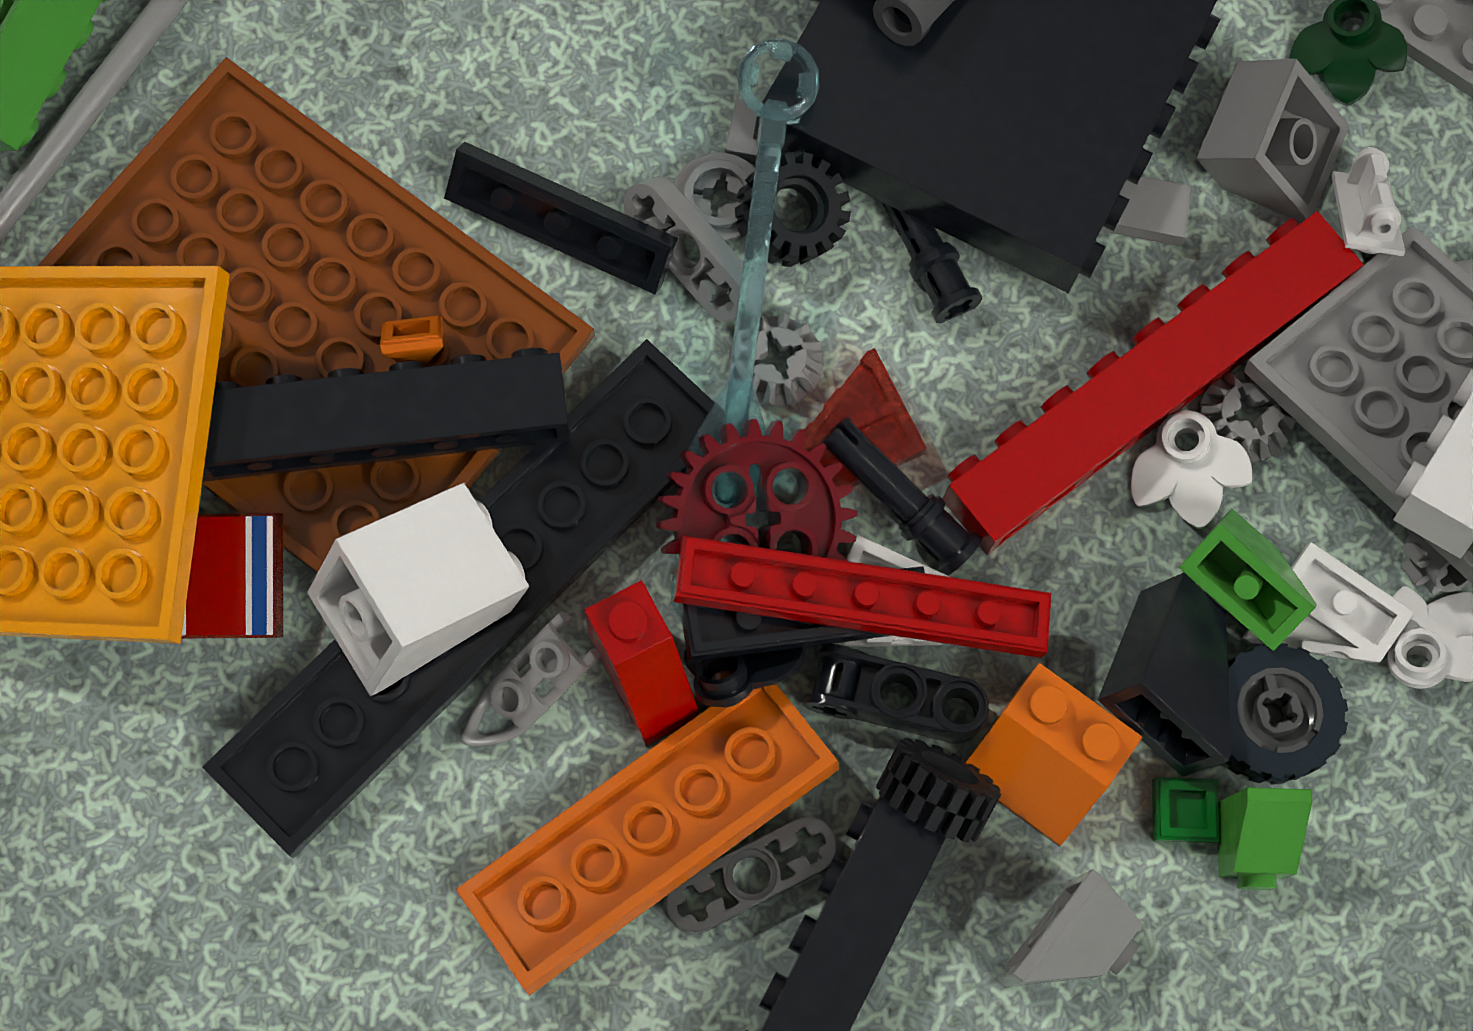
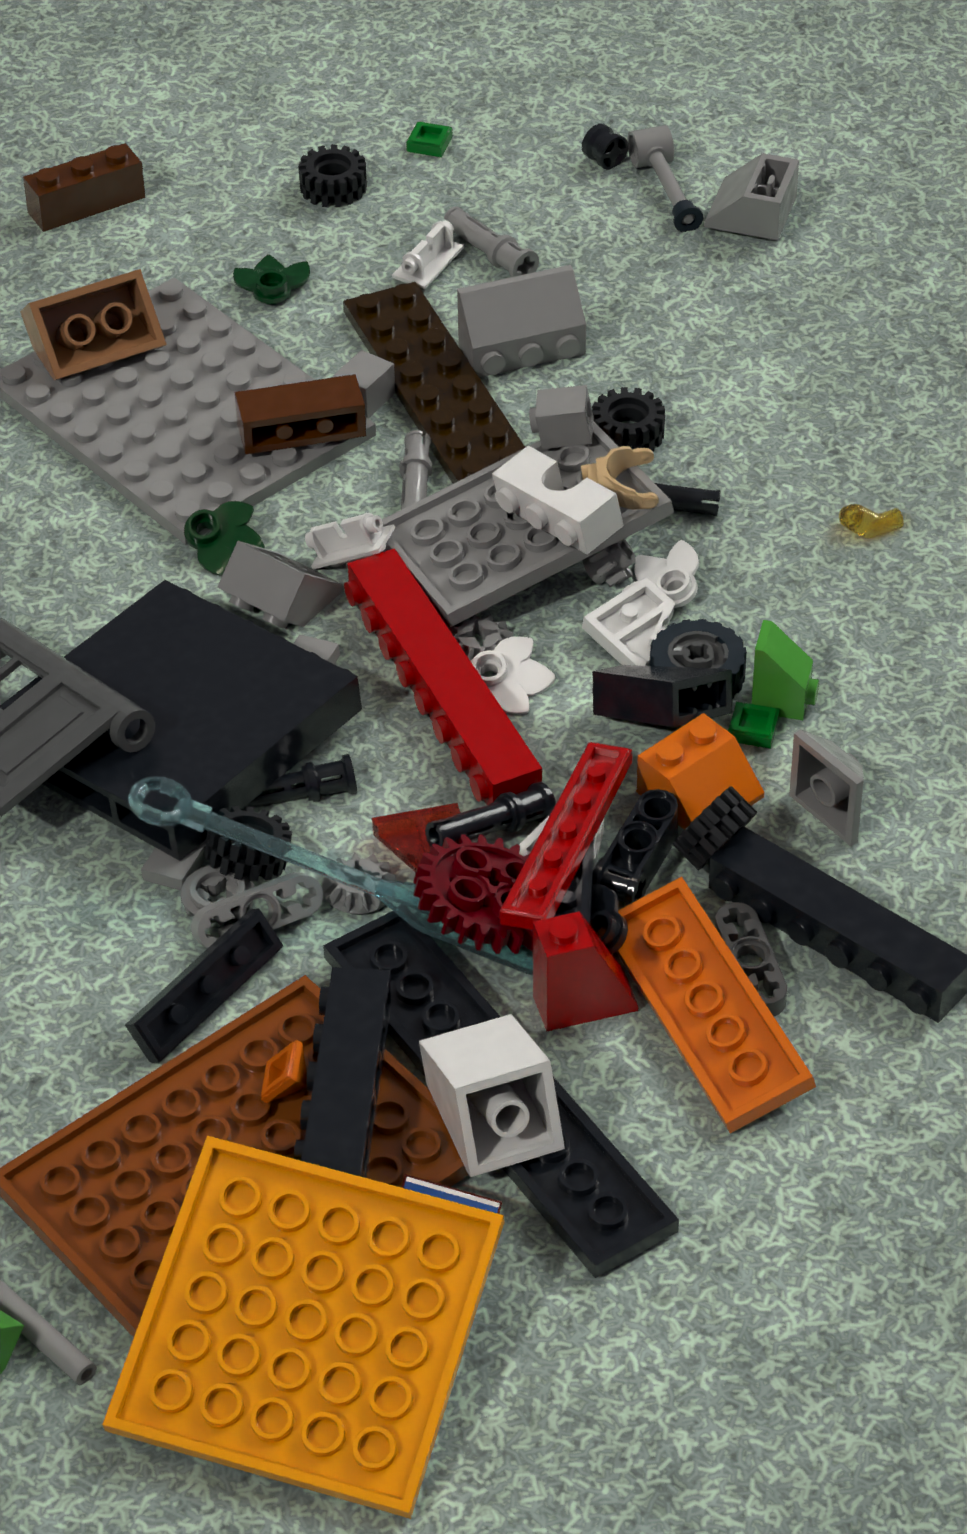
camera: 70 degrees left, 30 degrees down
(515, 695) = (584, 1063): light grey piece -> none
(1250, 579) = (602, 646): bright green slope -> none

